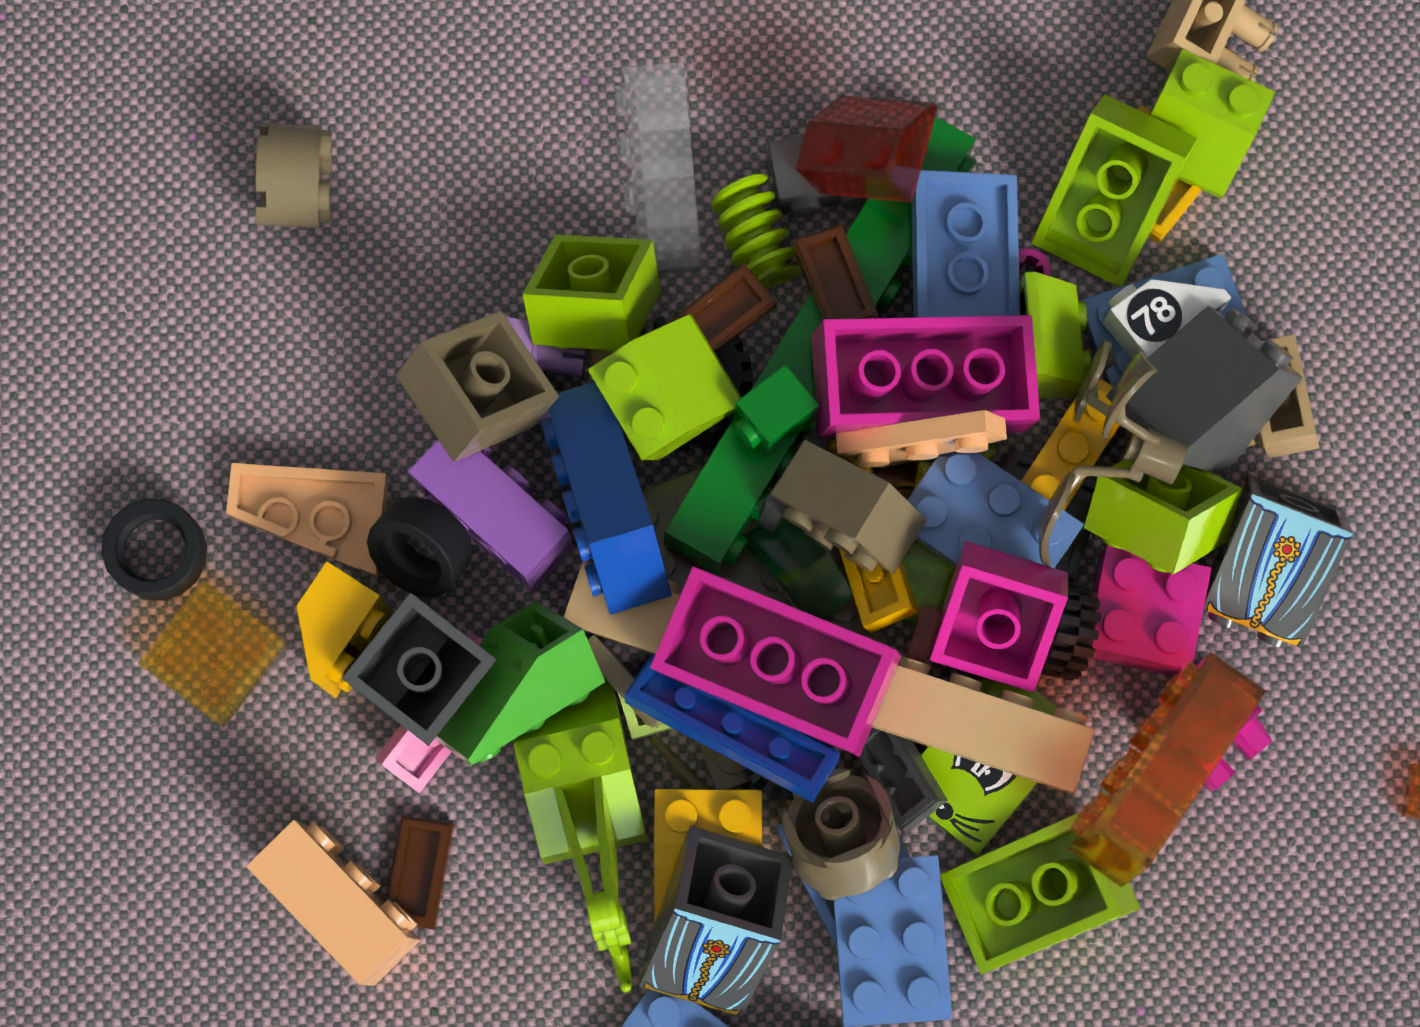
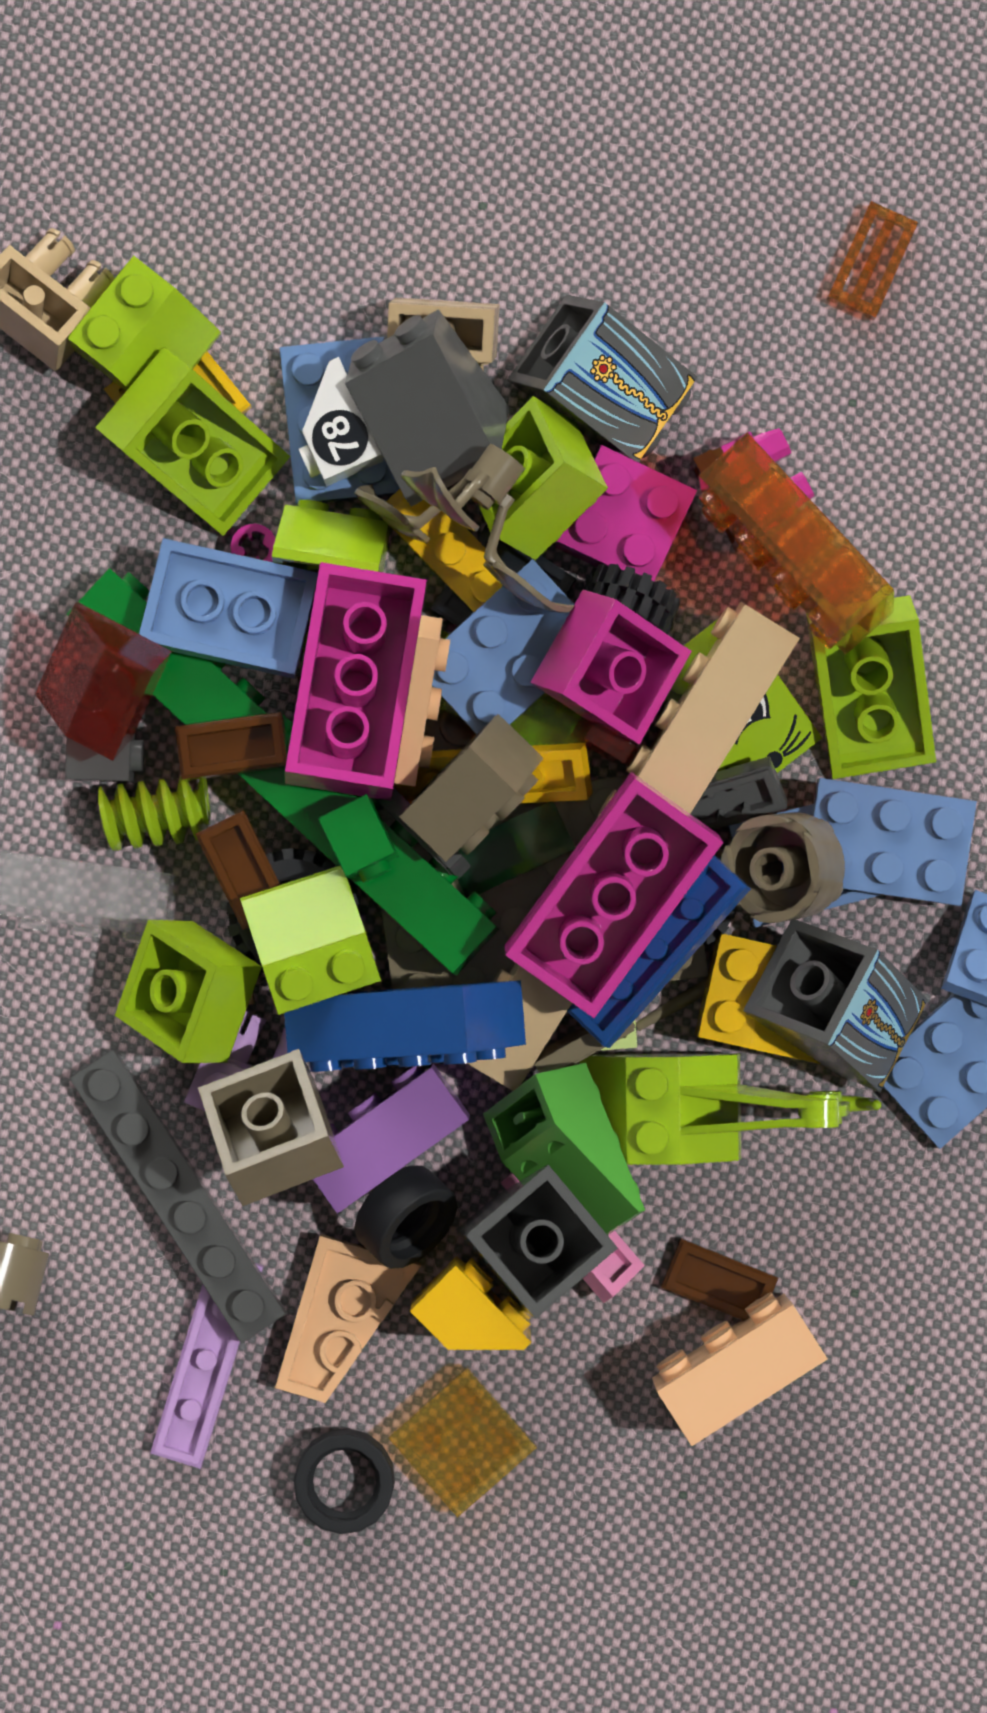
camera: 80 degrees left, 10 degrees up
(247, 398) = (197, 1385): none -> lavender tile
(394, 334) = (178, 1196): none -> dark grey plate

